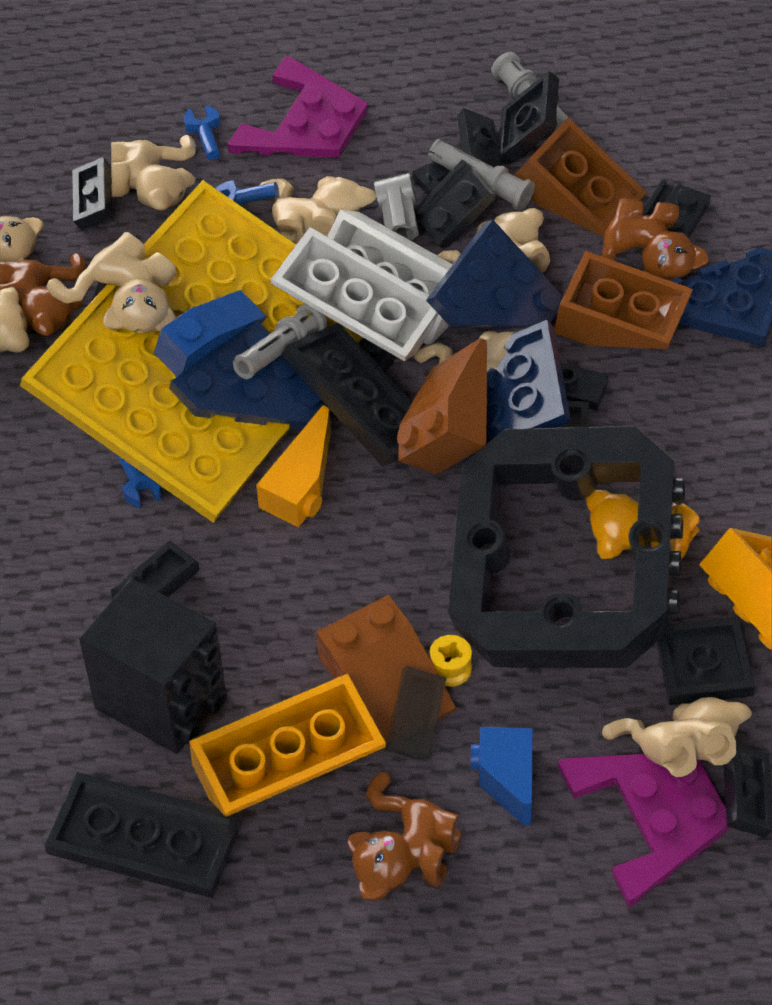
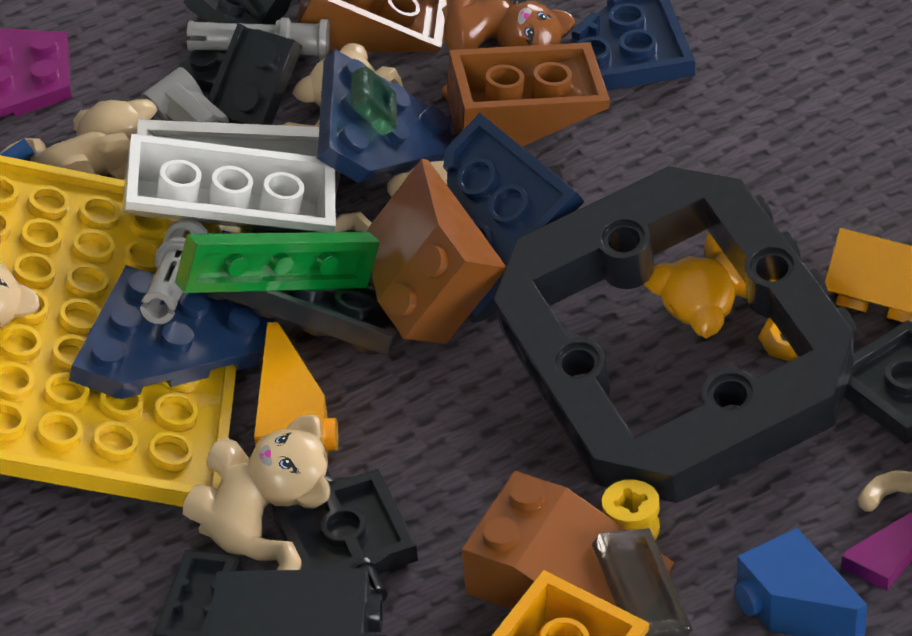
camera: 30 degrees left, 10 degrees down
(136, 482) = (83, 510): blue bar -> none
(204, 330) = (72, 301): blue slope -> none
(249, 516) = (283, 471): none -> tan animal
(272, 577) = (351, 529): none -> black plate
(341, 369) = (276, 261): none -> green plate
(492, 272) = (374, 100): none -> clear green tile

